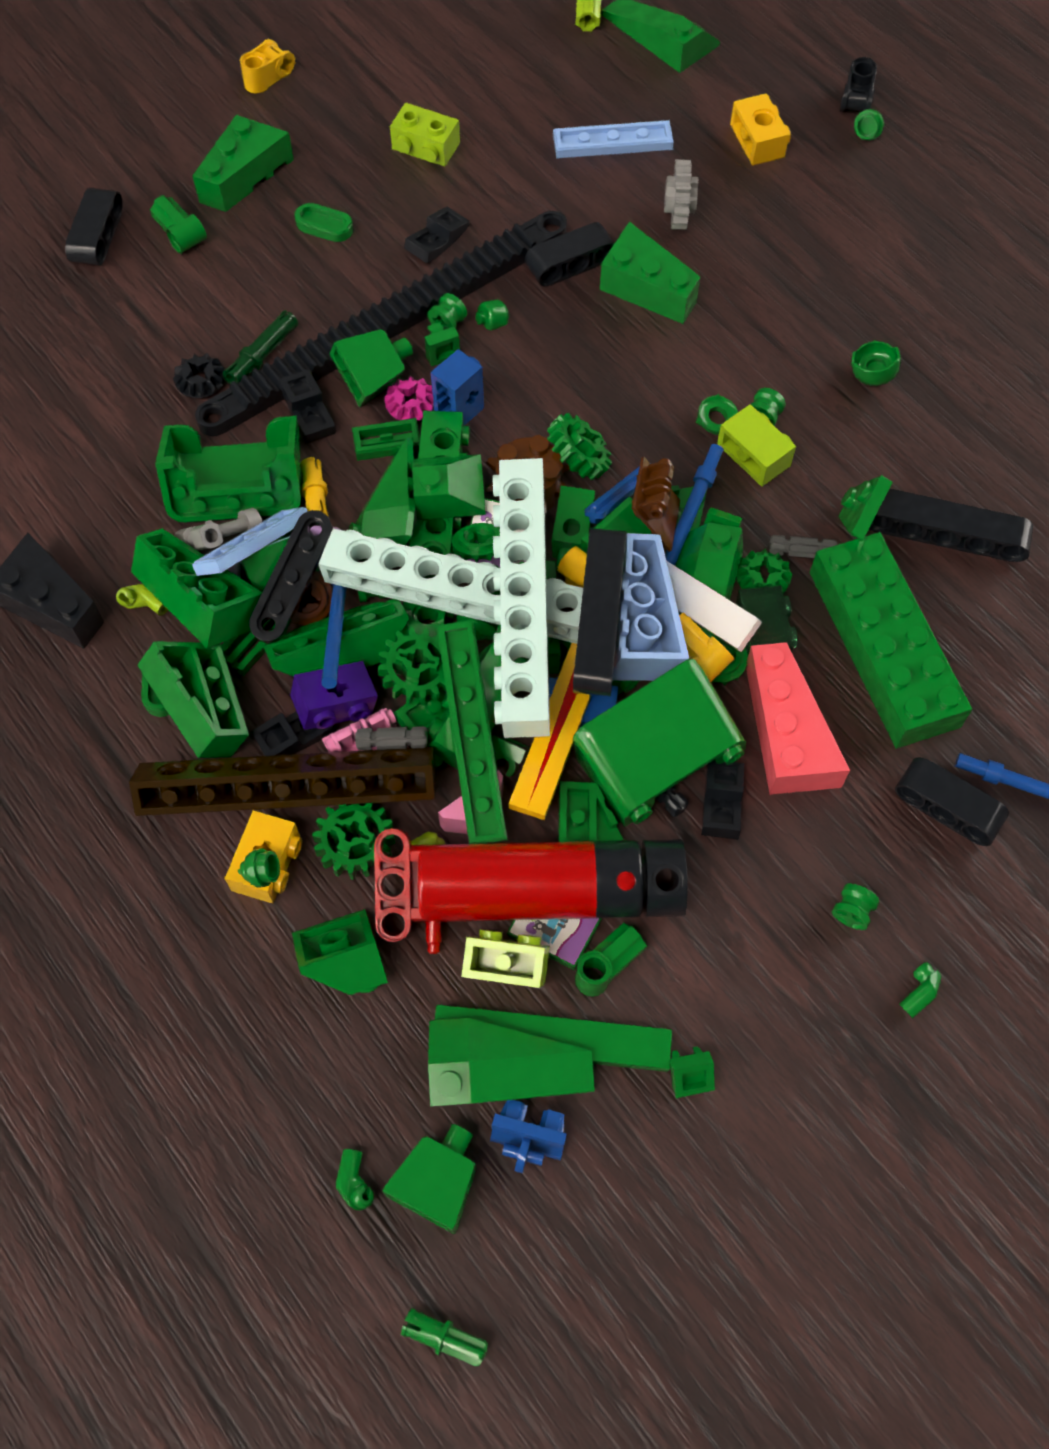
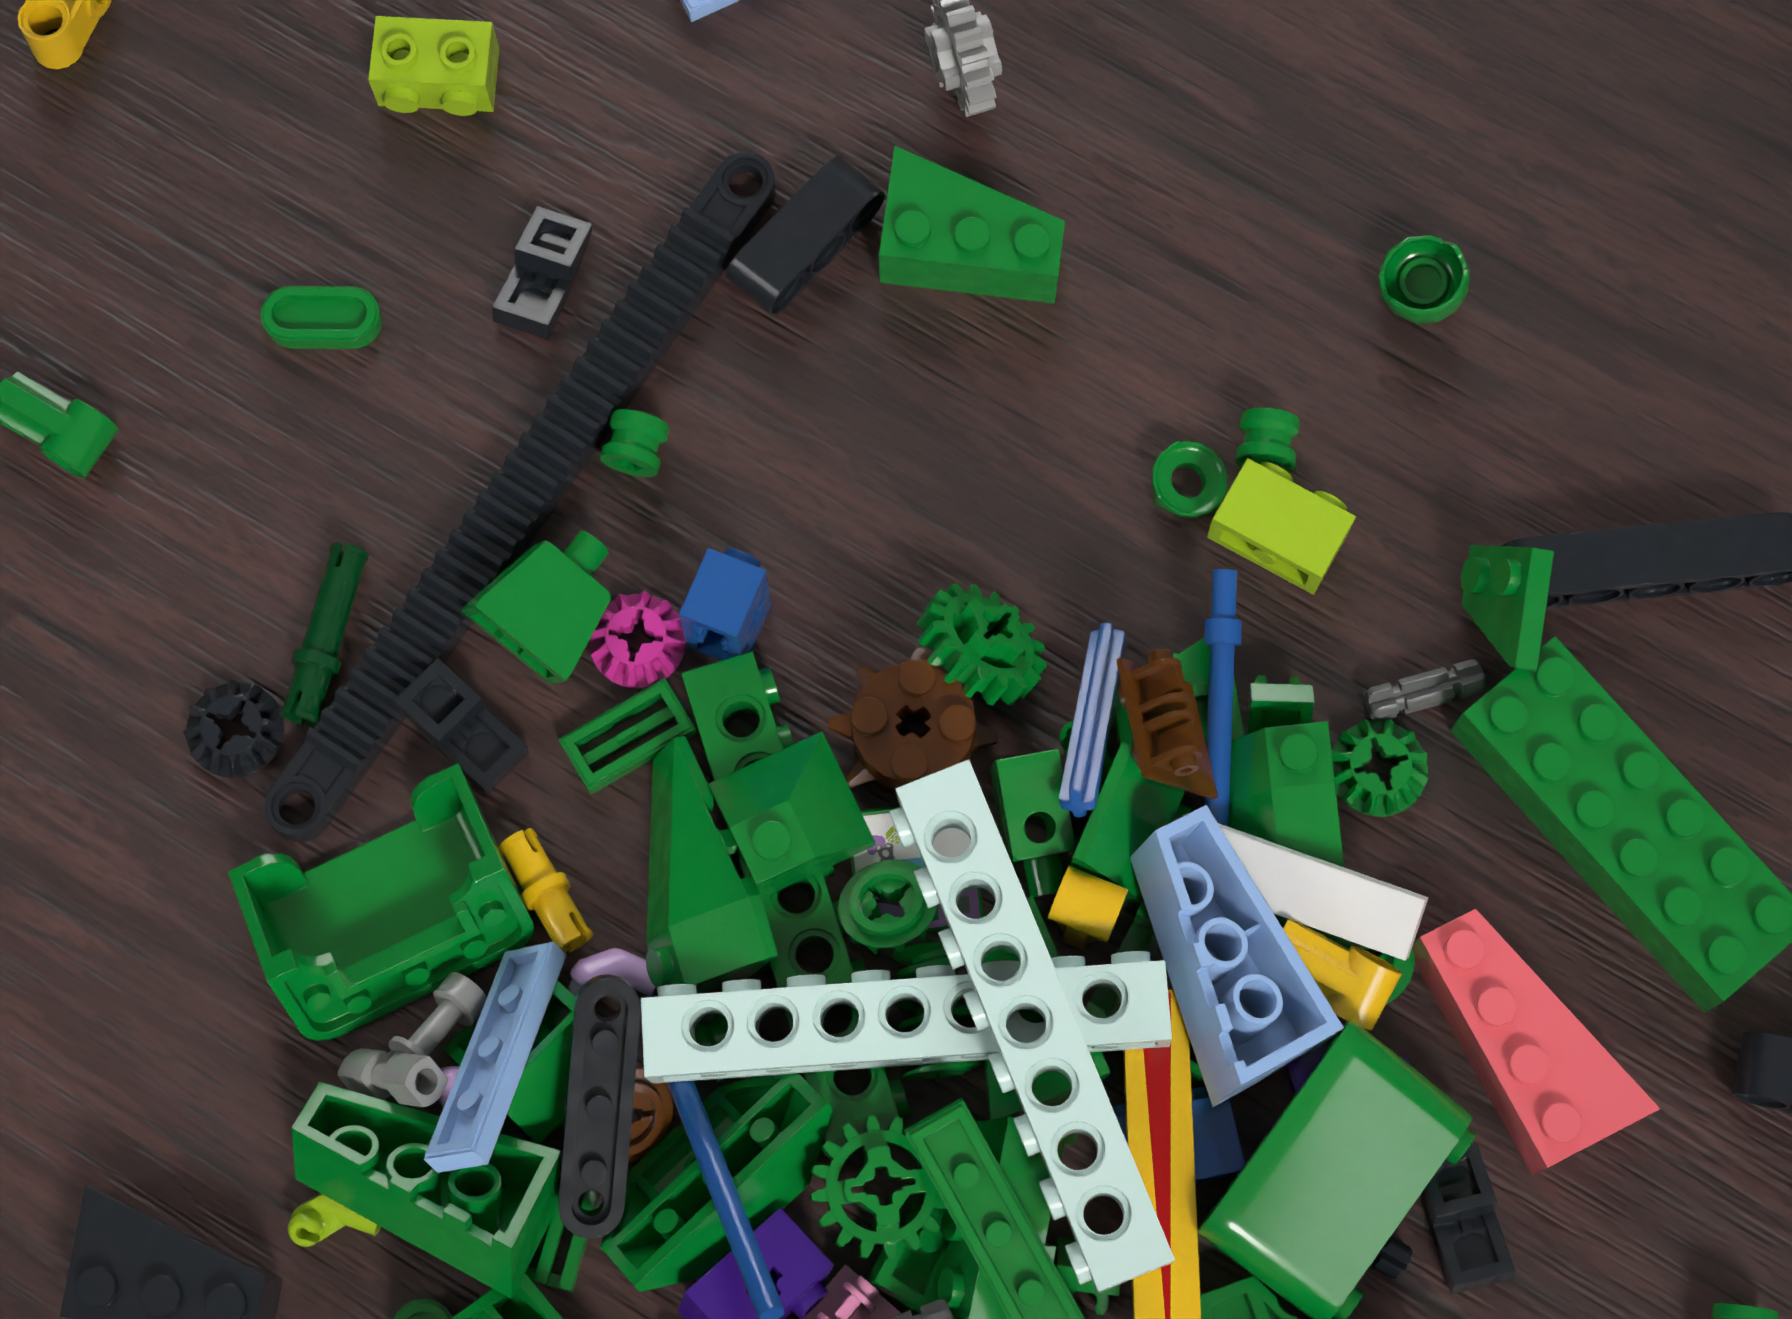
camera: 20 degrees left, 10 degrees up
(239, 161) = (111, 246): green wedge -> none
(440, 343) = (648, 511): green tile -> none
(492, 314) = (710, 407): green piece -> none
(599, 612) = (1173, 1011): black beam -> none
(773, 611) = (1415, 853): clear green brick -> none

